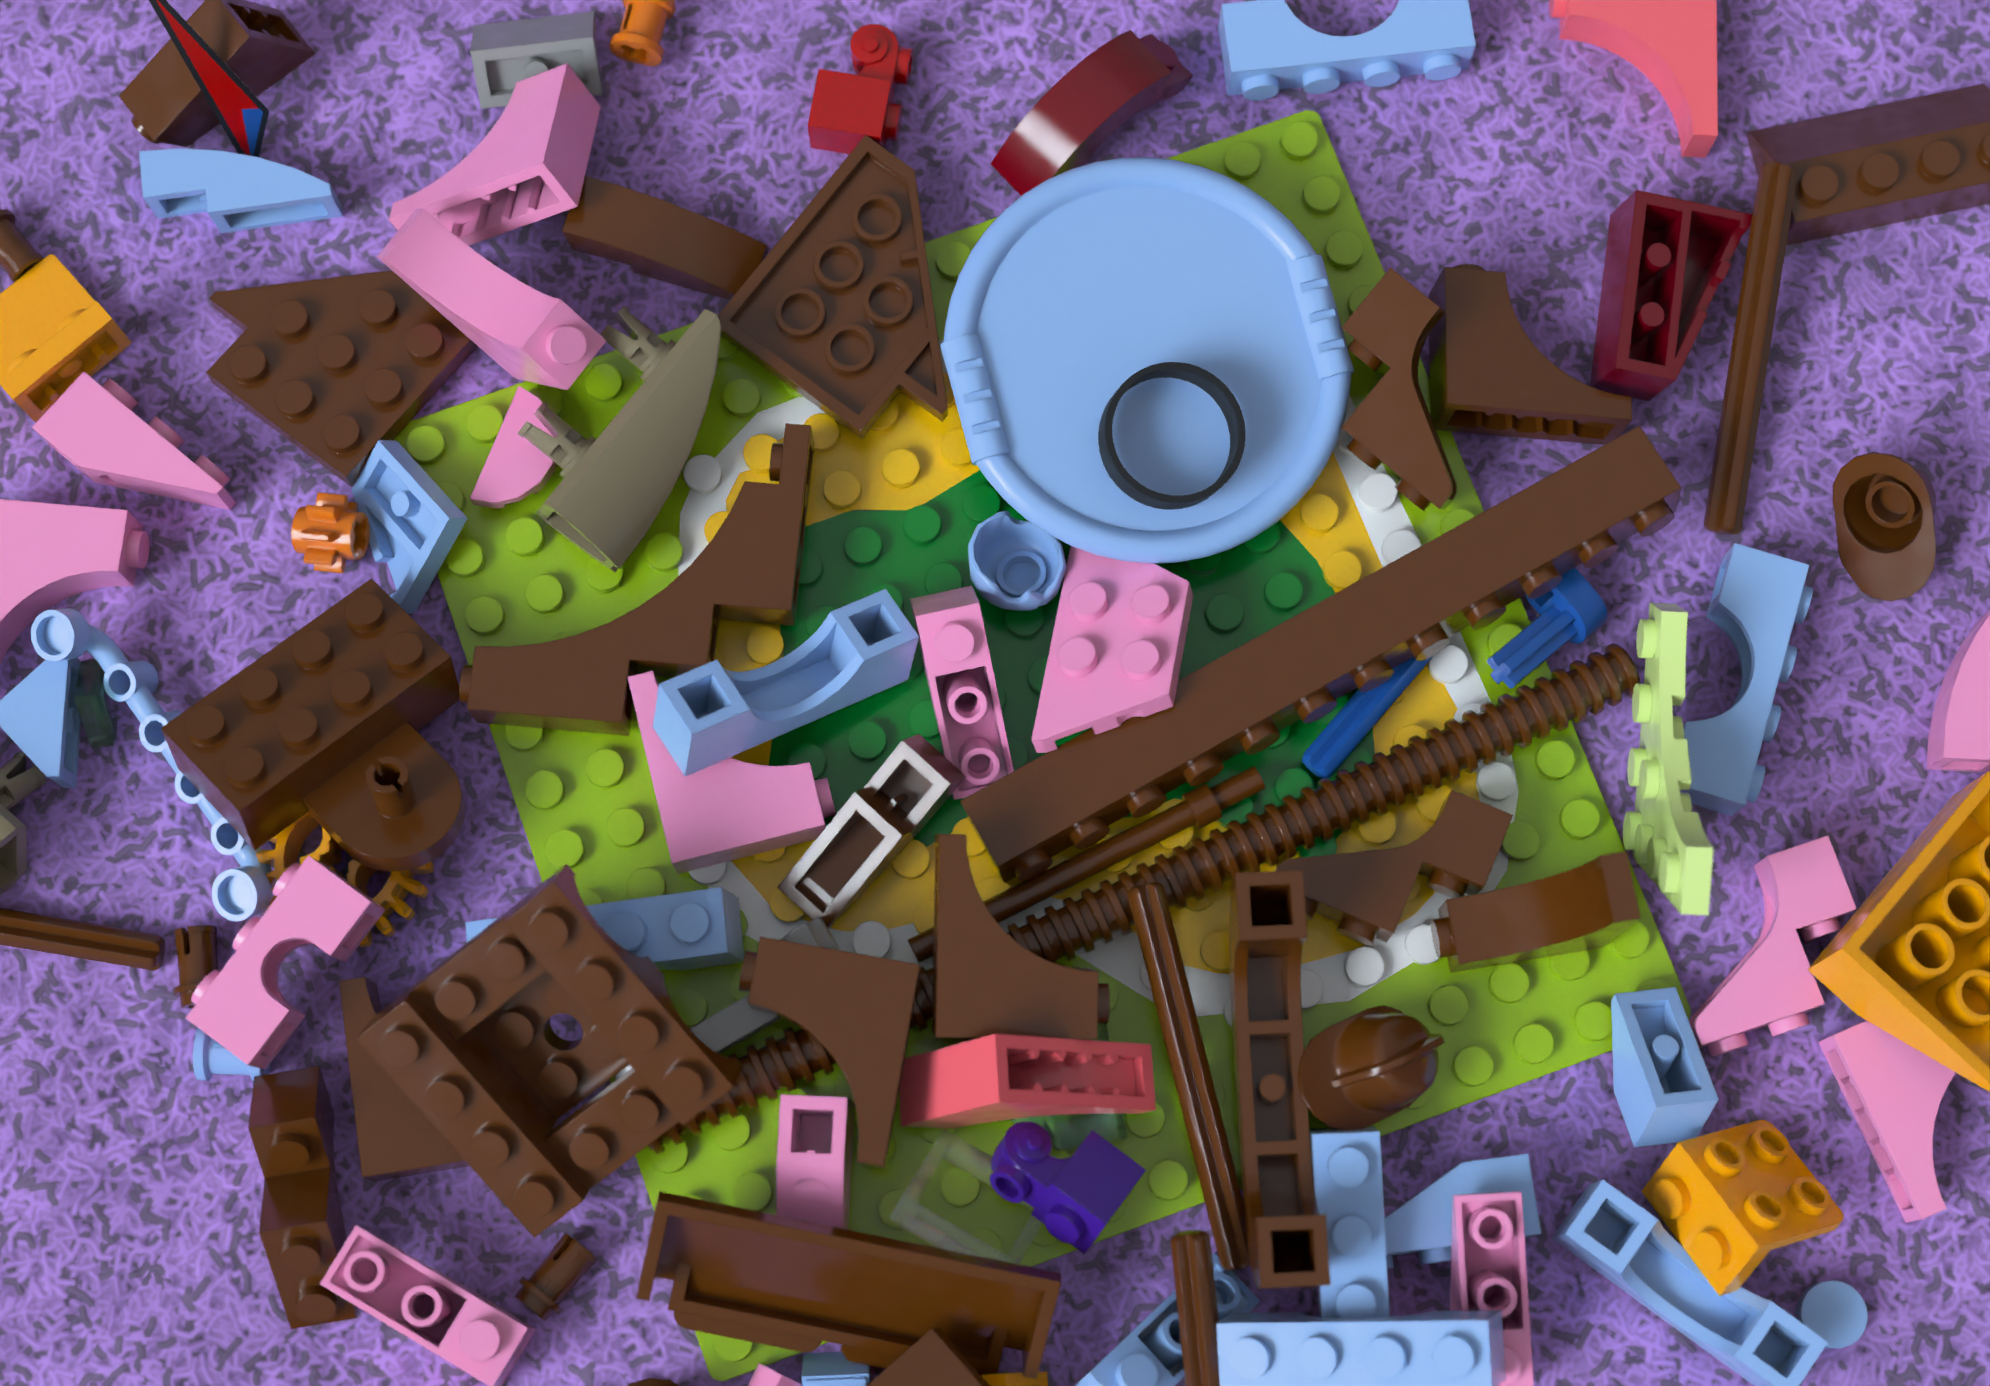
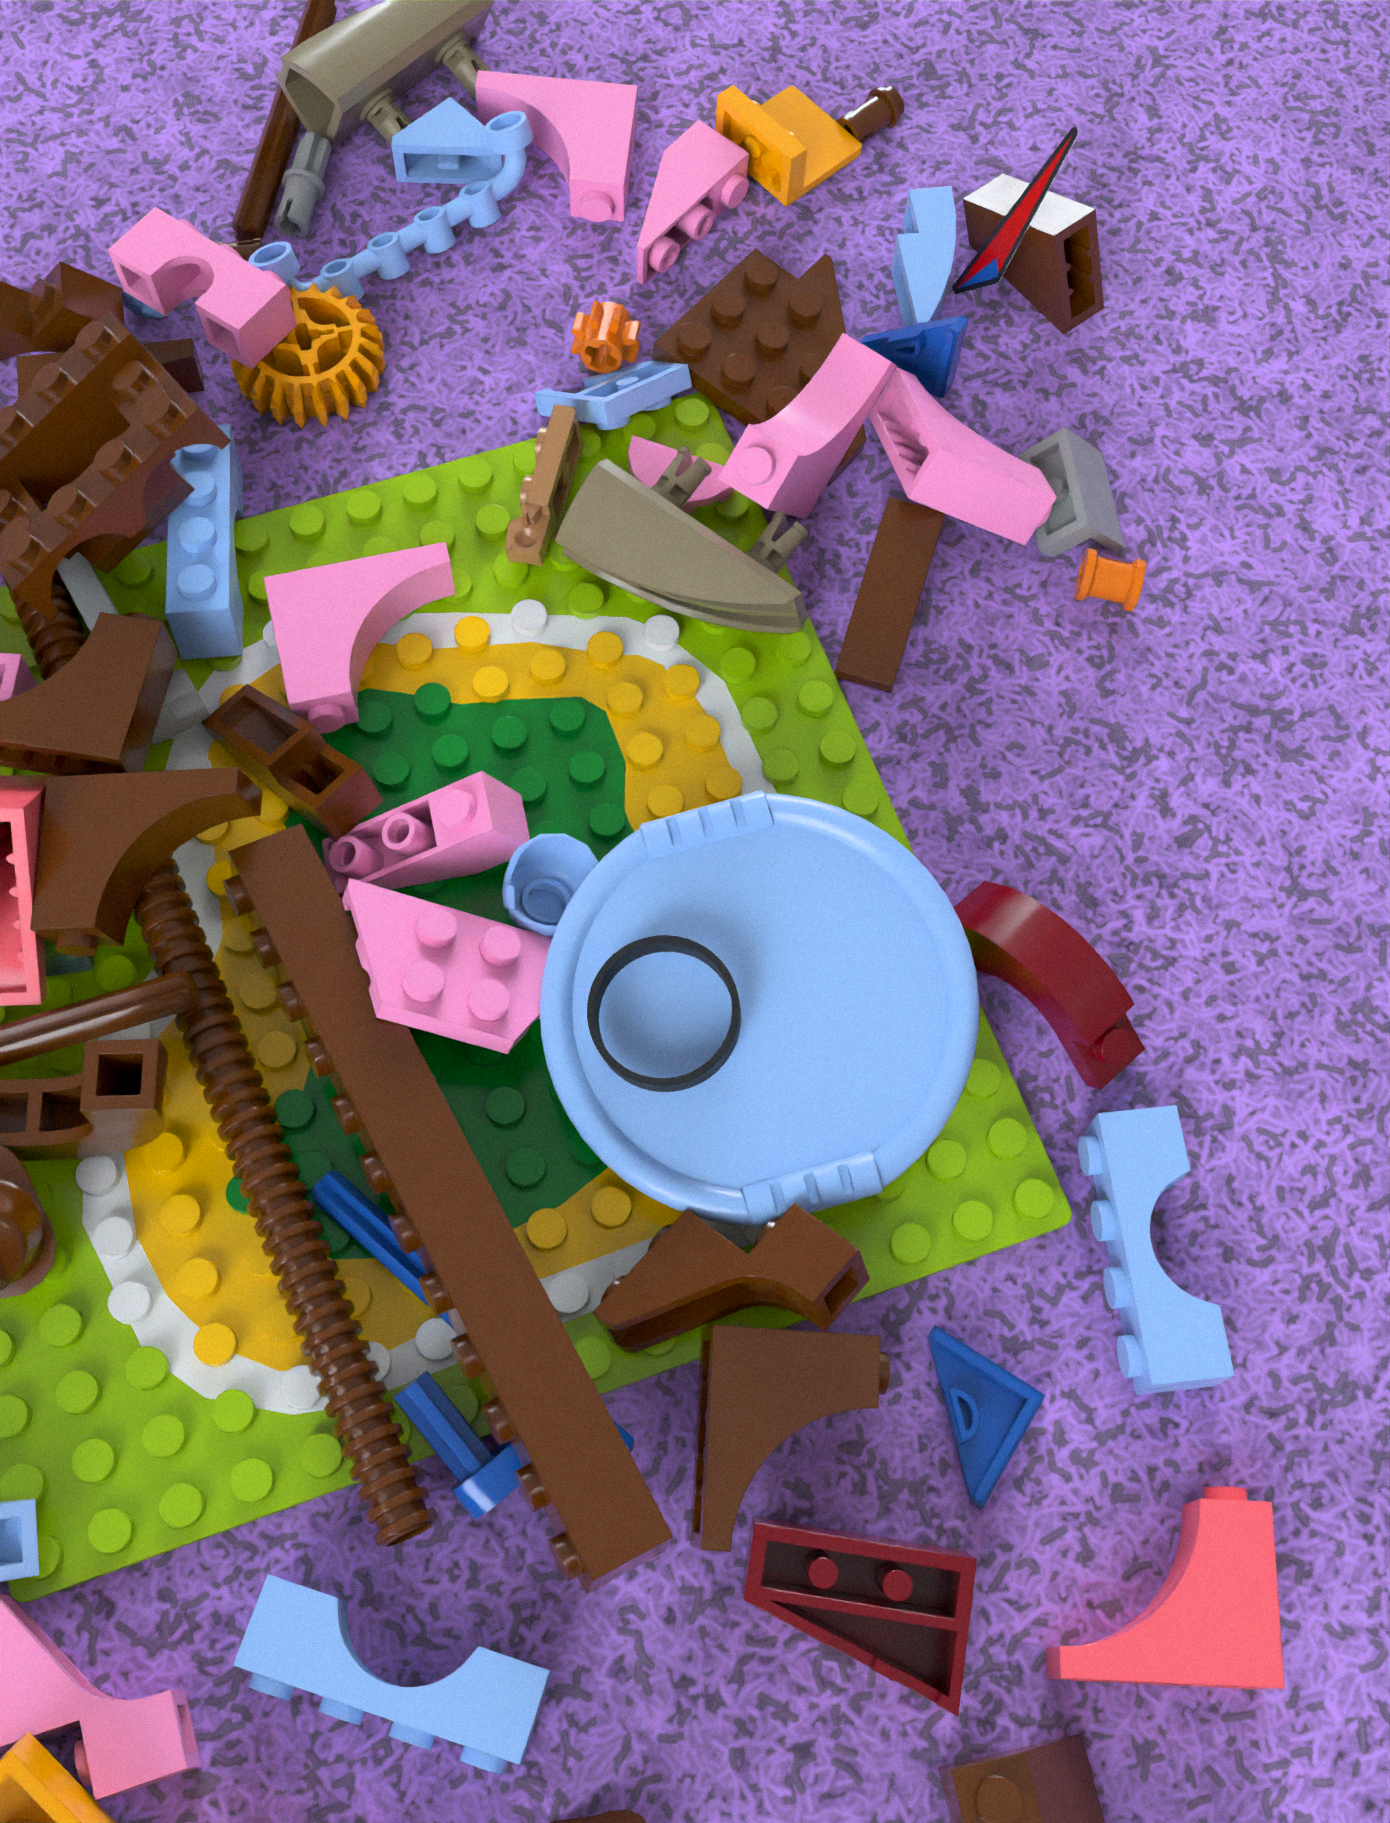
camera: 85 degrees right, 10 degrees down
(90, 888) = (303, 185): none -> light grey axle
(92, 706) = (454, 177): tile -> none
(333, 734) = (406, 323): reddish brown brick -> none
(361, 199) = (924, 350): none -> blue tile
(547, 586) = (547, 491): none -> medium nougat hinge
(725, 712) = (396, 610): light blue arch -> none
(740, 576) = (554, 652): reddish brown arch -> none
(848, 297) = (842, 736): reddish brown wing -> none
(861, 104) = (1039, 771): red brick -> none
(1199, 808) = (288, 1062): reddish brown bar -> none
(1372, 887) = (182, 1235): reddish brown arch -> none
(1490, 194) = (984, 1409): none -> blue tile
(1538, 918) = (119, 1404): reddish brown arch -> none
(1663, 829) = (242, 1545): yellowish green plate -> none
(1750, 348) = (800, 1708): reddish brown axle -> none

